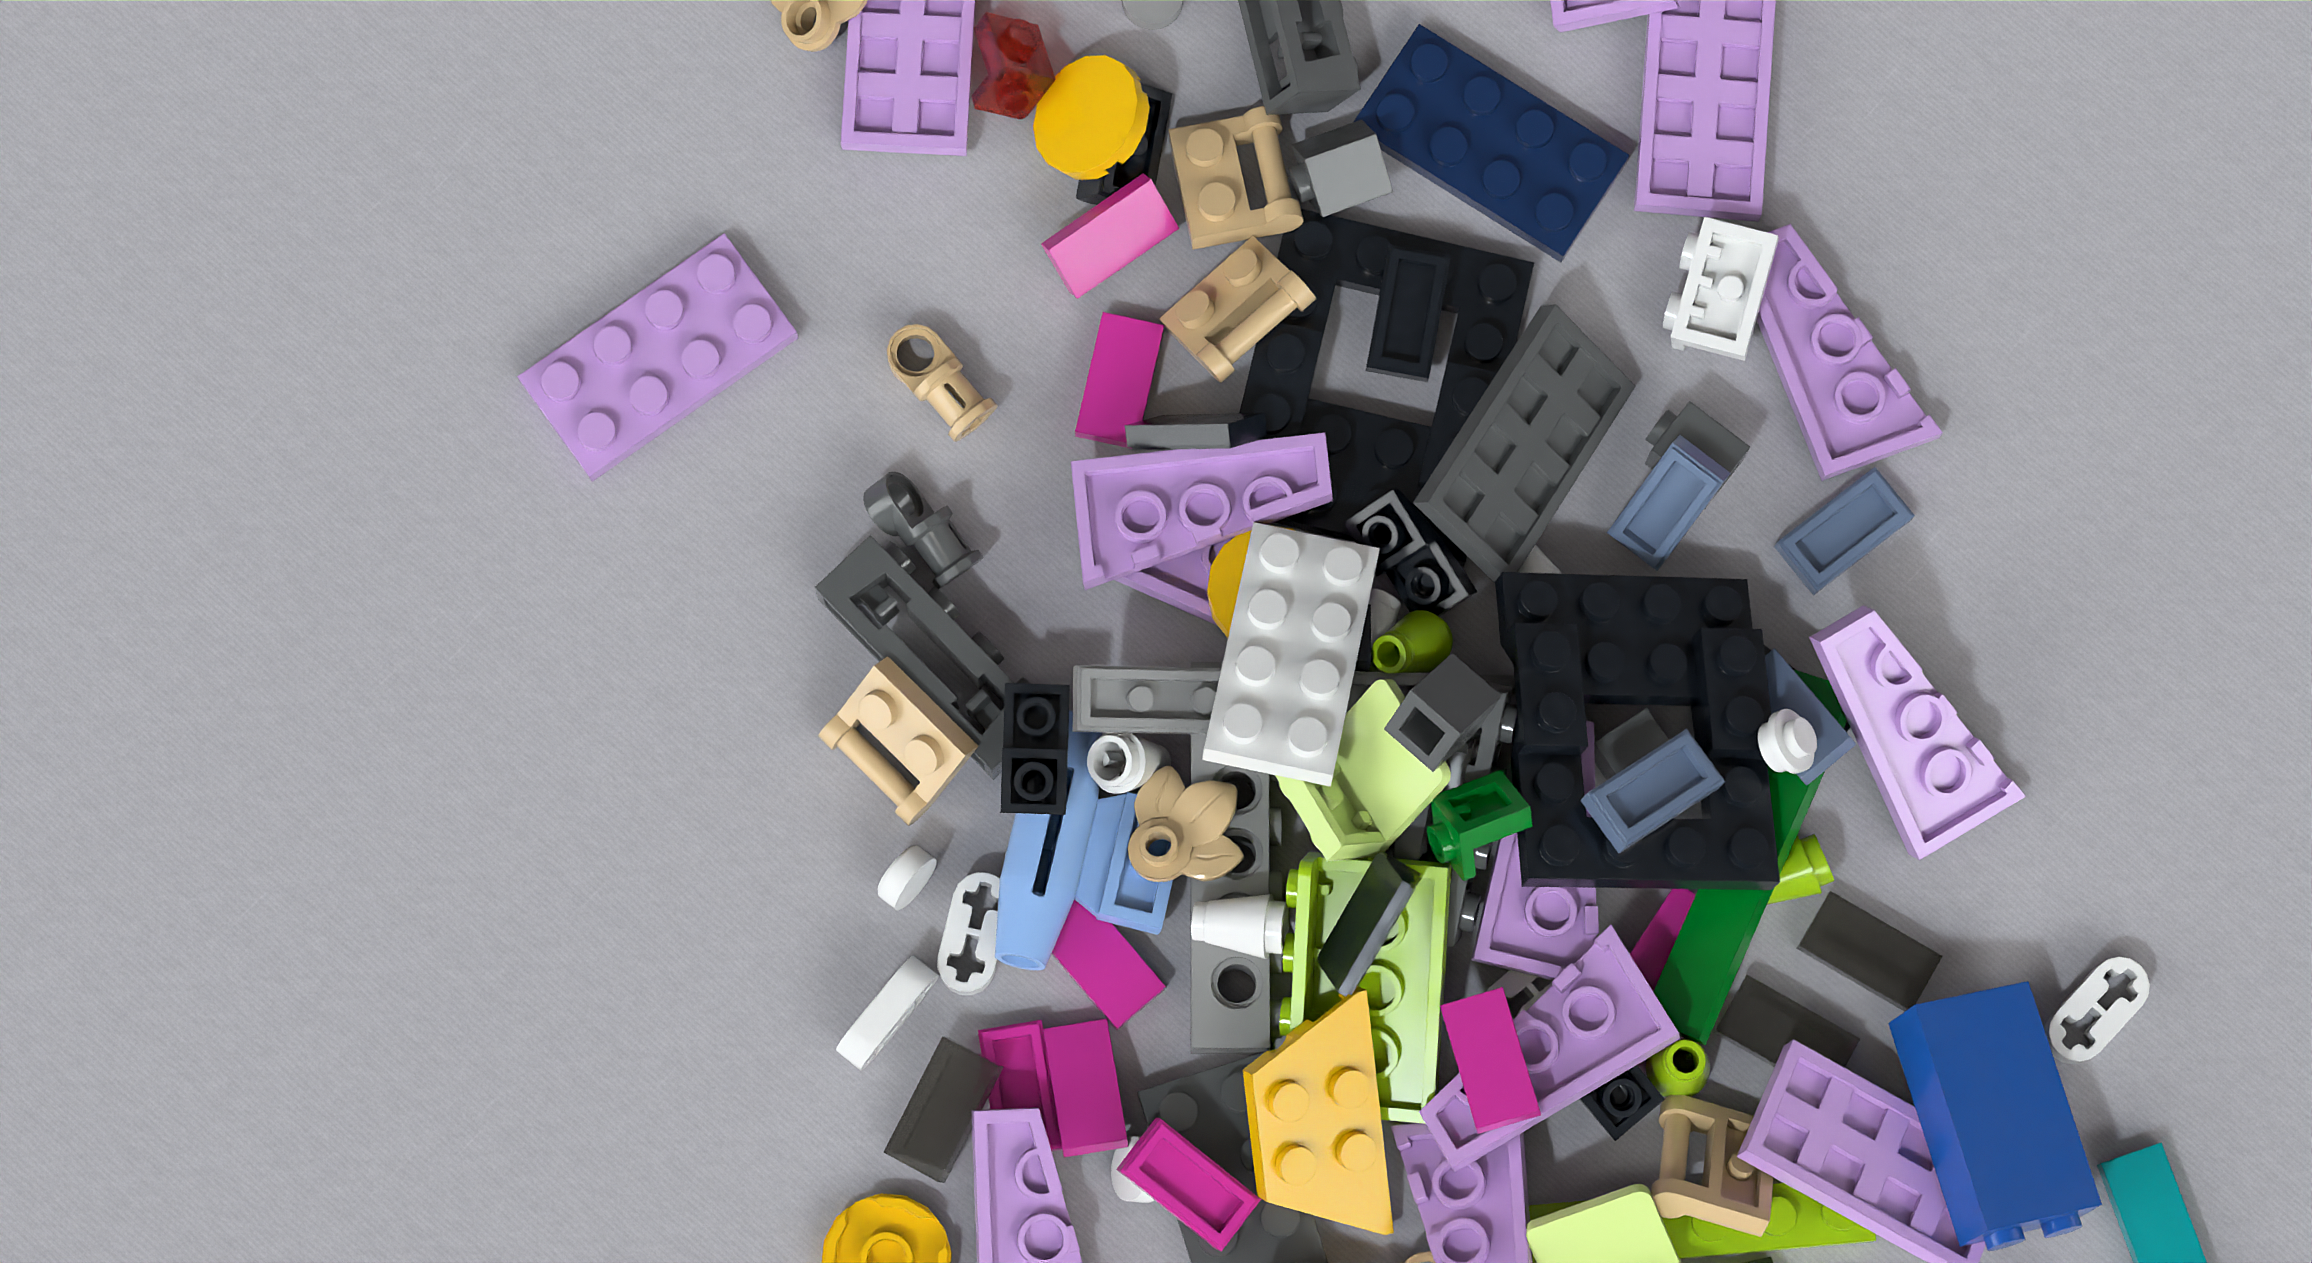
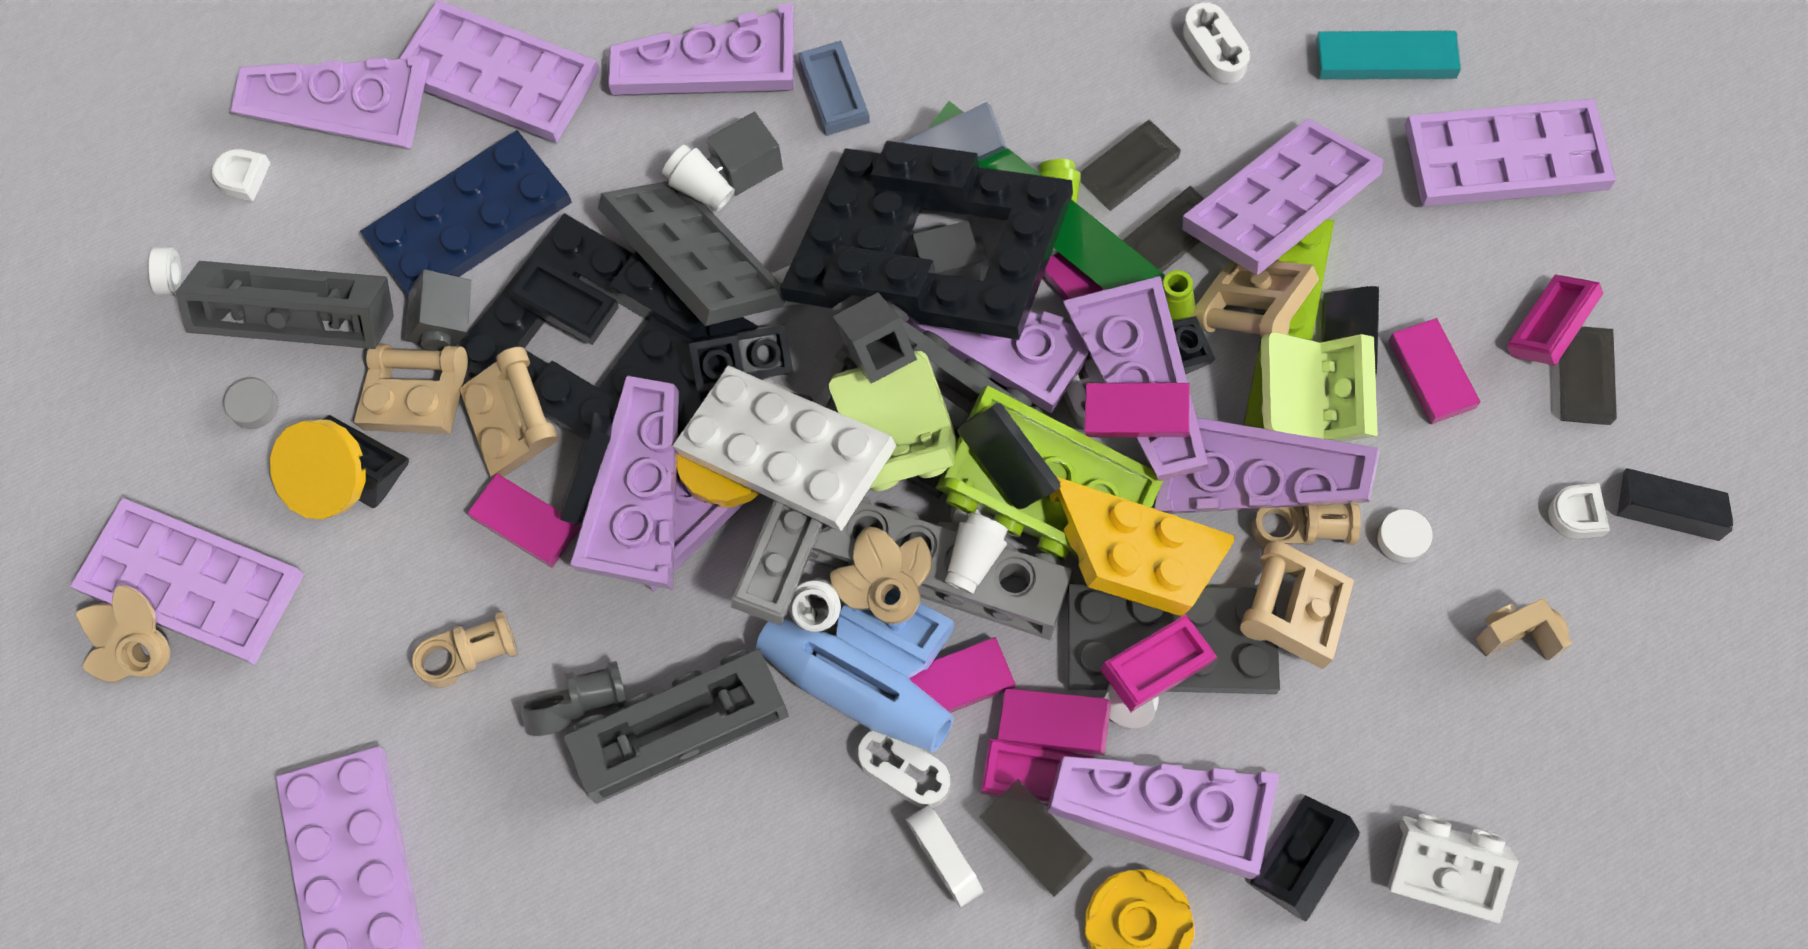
camera: 65 degrees left, 10 degrees down
(906, 877) = (842, 804): white tile -> none
(910, 729) = (725, 759): tan plate -> none
(1015, 66) = (252, 508): clear red bracket -> none
(1035, 748) = (781, 662): black slope -> none
(1110, 236) = (413, 488): tile -> none
(1413, 644) = (804, 361): lime cone -> none
(1474, 817) = (958, 352): green bracket -> none
(1632, 411) = (696, 177): none -> white cone
(1652, 791) = (981, 230): sand blue tile -> none
(1668, 502) = (772, 176): sand blue tile -> none
(1722, 288) = (635, 97): white bracket -> none
(1787, 742) = (976, 139): white plate -> none
(1917, 748) = (1010, 78): lavender wing -> none
(1995, 1116) = (1277, 112): blue brick -> none

